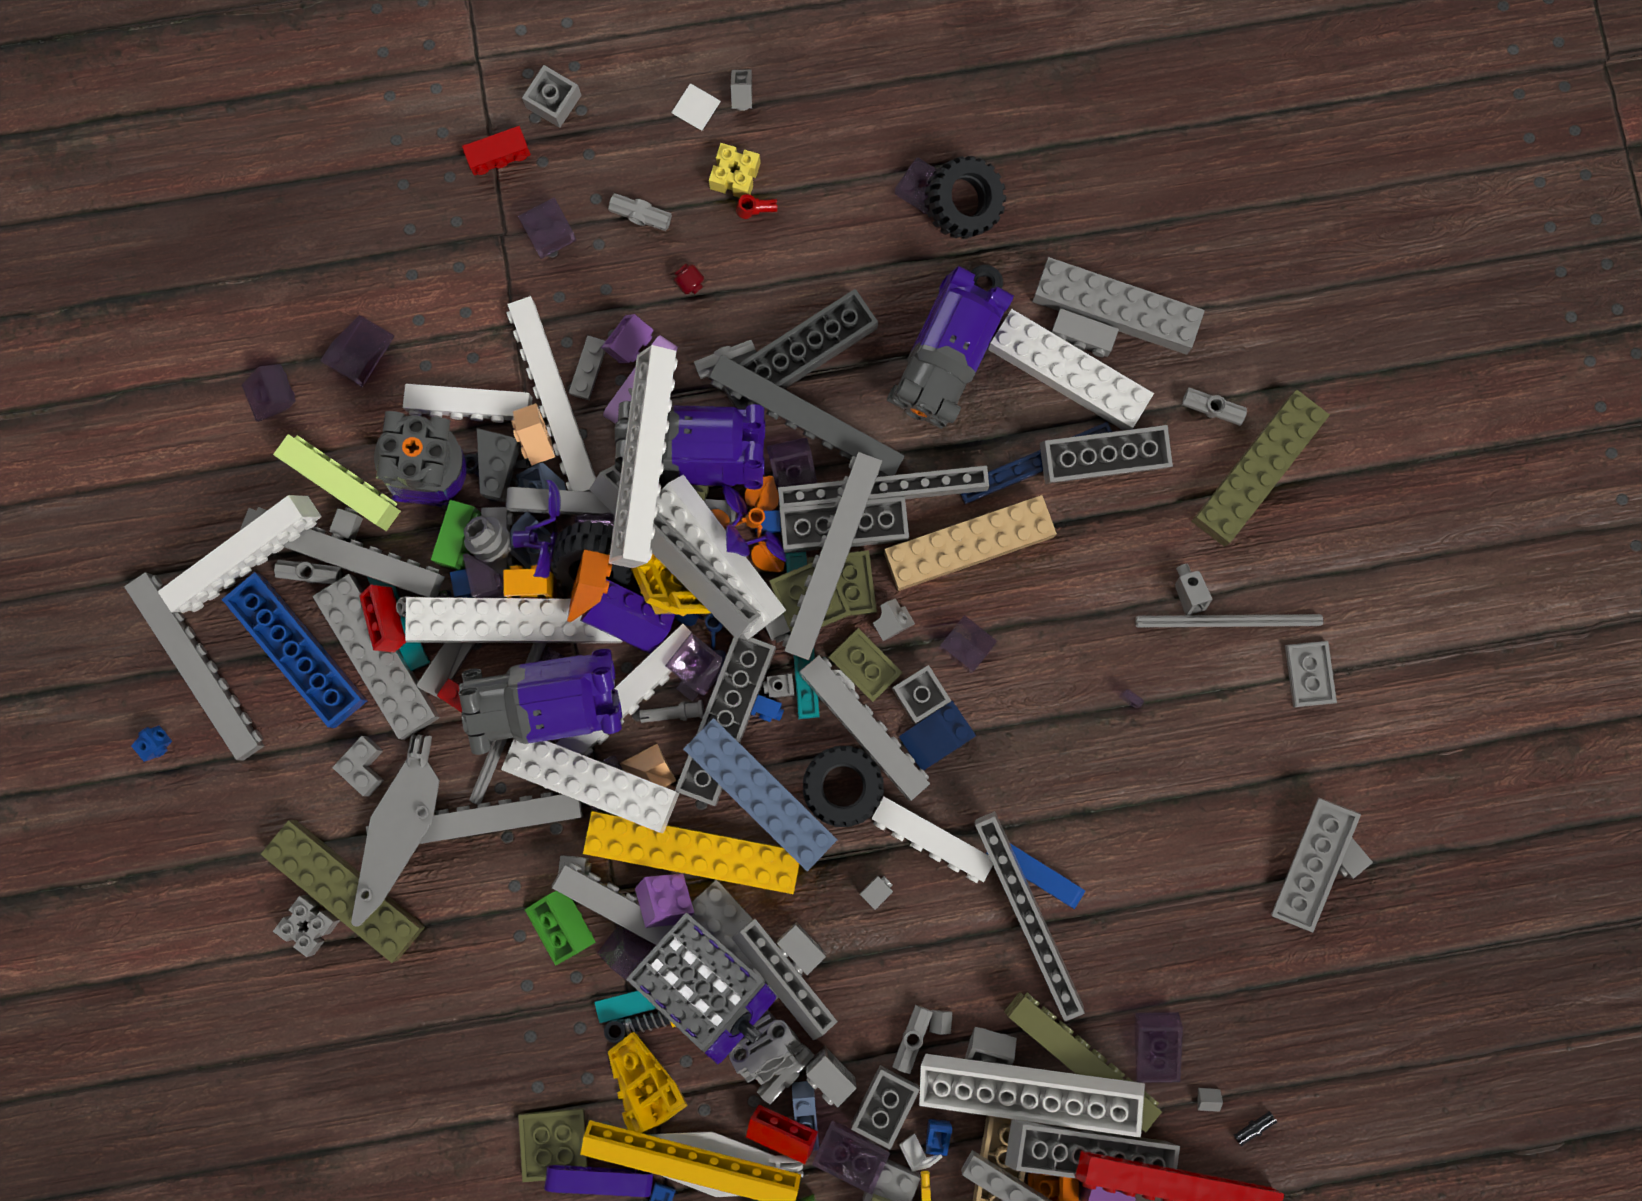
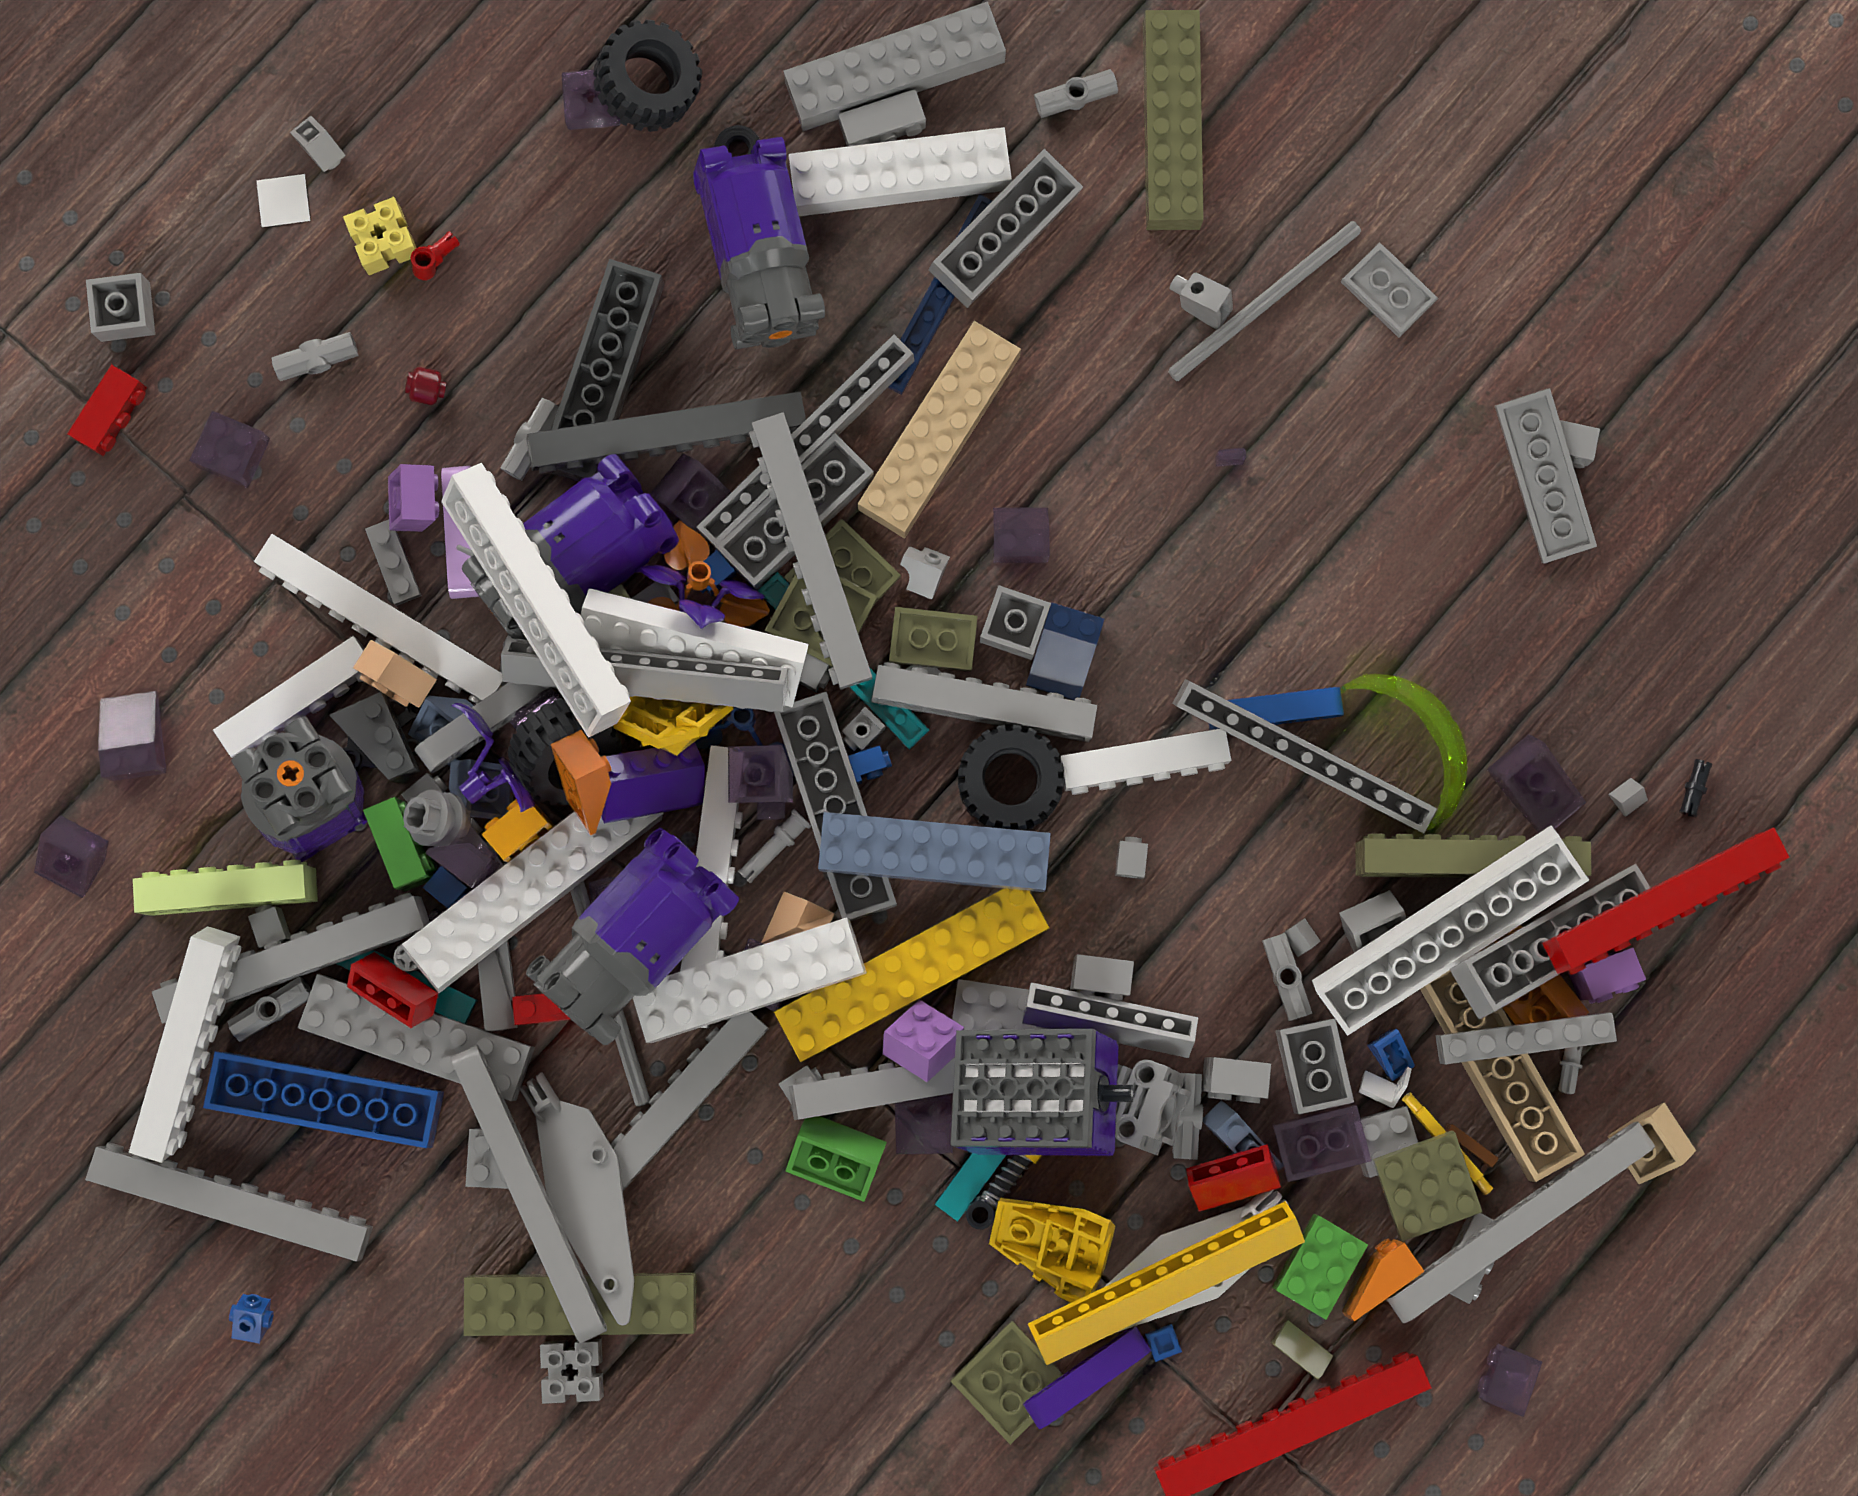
camera: 40 degrees left, 0 degrees up
(362, 803) = (529, 1194): none -> light grey beam
(1128, 960) = (1438, 723): none -> clear neon green windscreen

